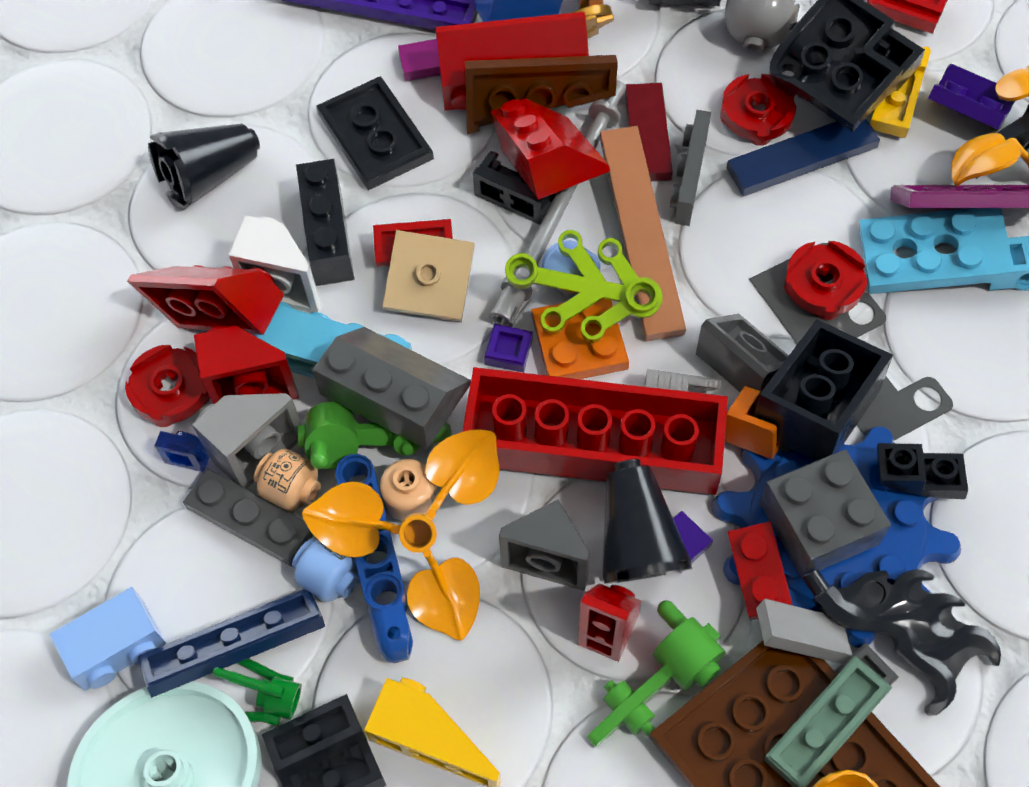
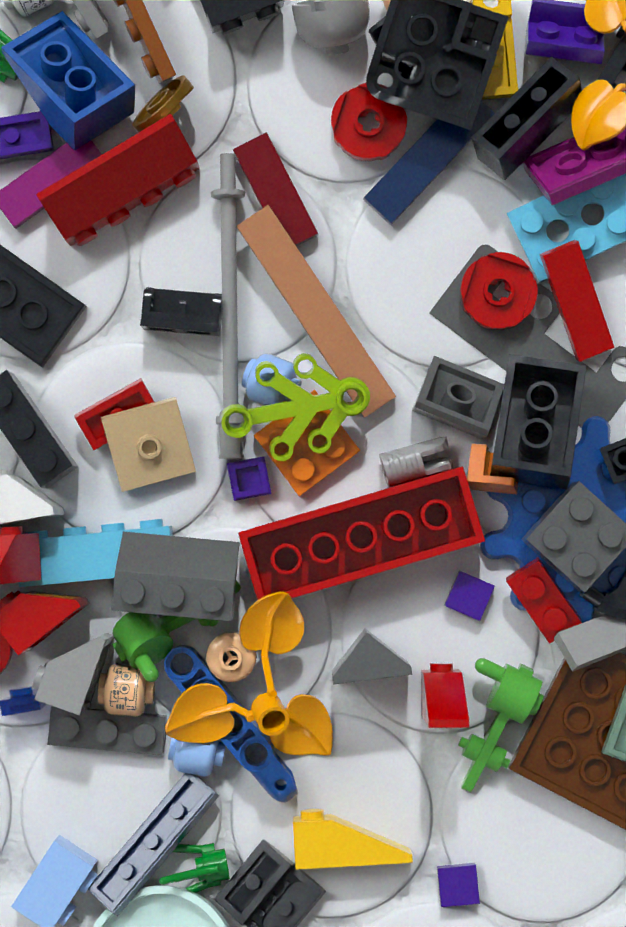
camera: 25 degrees left, 25 degrees up
(541, 80) = (157, 202): reddish brown wing -> none
(545, 147) = (198, 267): red slope -> none
(639, 527) = (439, 618): black cone -> none
(690, 167) = (333, 222): dark grey plate -> none
(903, 308) = (577, 300): none -> red tile
(908, 146) = (527, 118): none -> black brick

